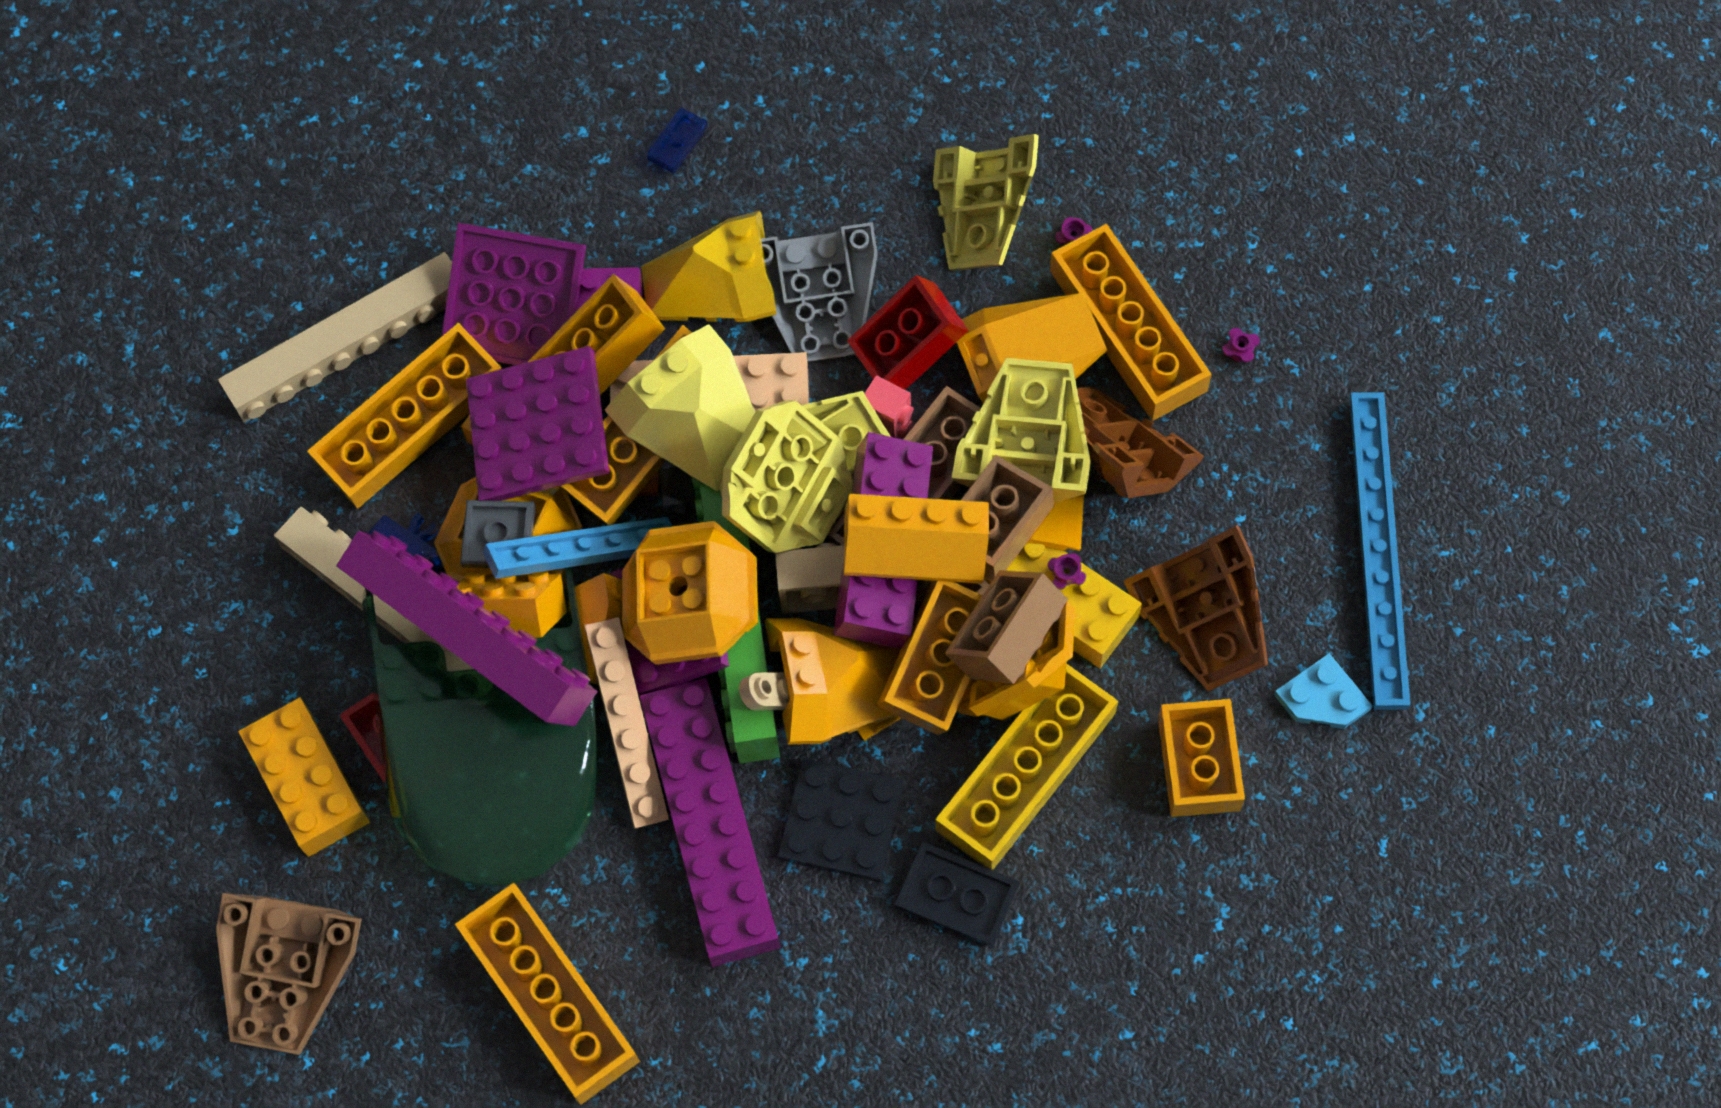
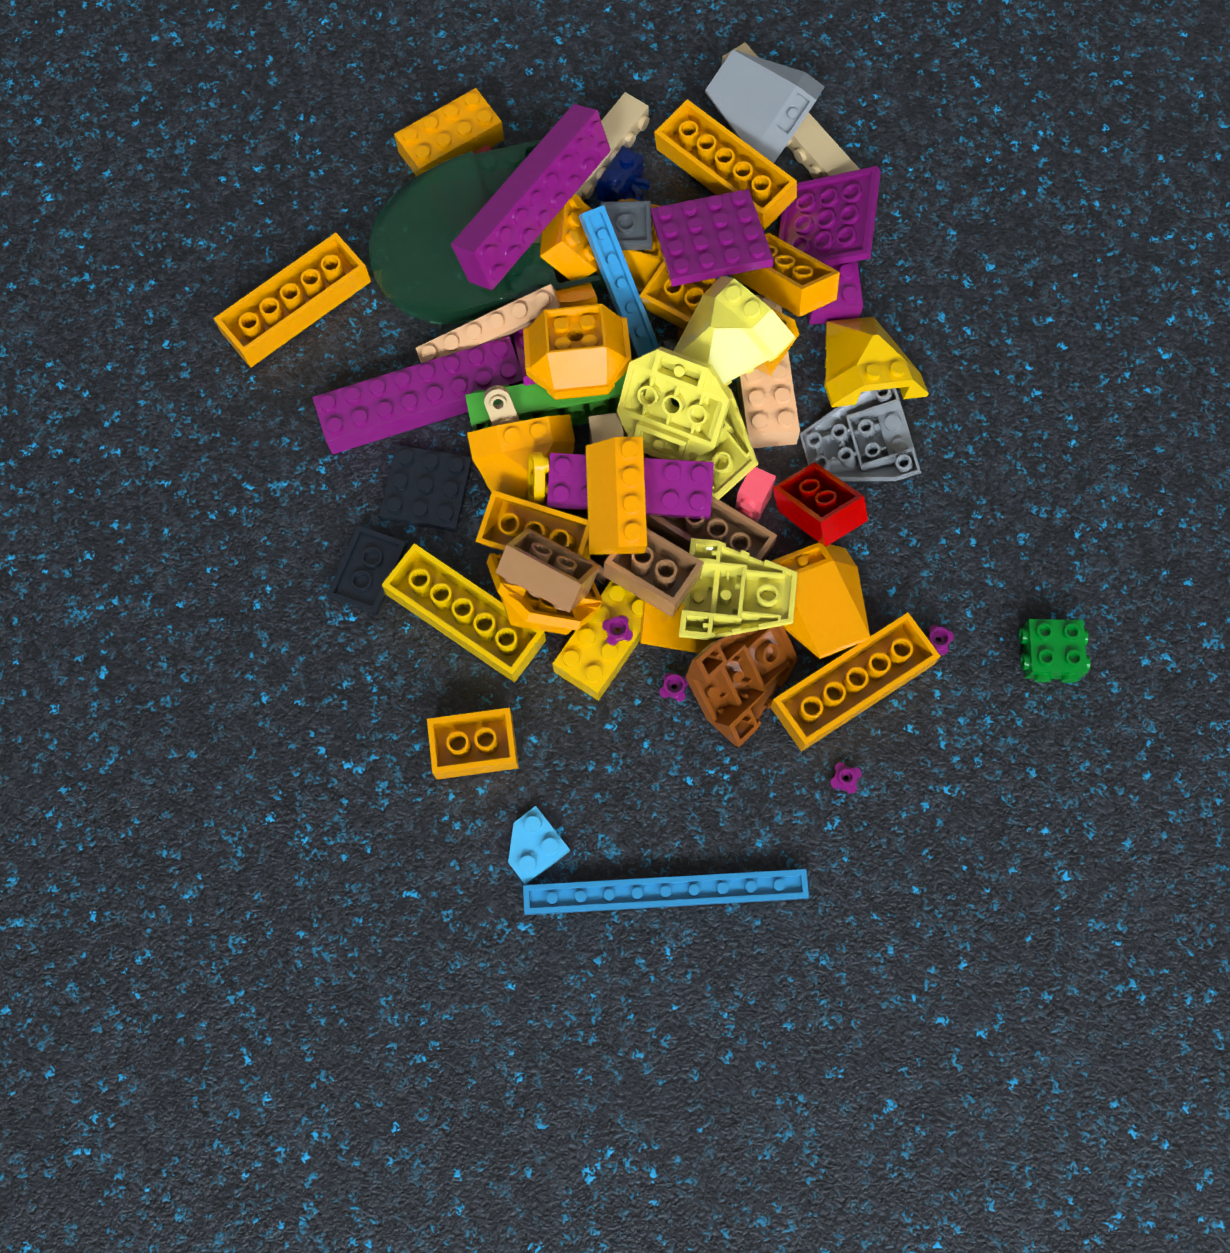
camera: 85 degrees right, 5 degrees up
(280, 967) = (319, 138): medium nougat wedge -> none
(322, 358) = (762, 100): none -> light grey wedge
(677, 140) = (988, 331): clear blue plate -> none
(869, 647) = (536, 483): none -> yellow plate
(982, 199) = (956, 563): light yellow wedge -> none
(1093, 115) = (1054, 650): none -> green brick
(1127, 517) = (673, 679): none -> magenta plate
(1207, 608) = (601, 744): dark orange wedge -> none

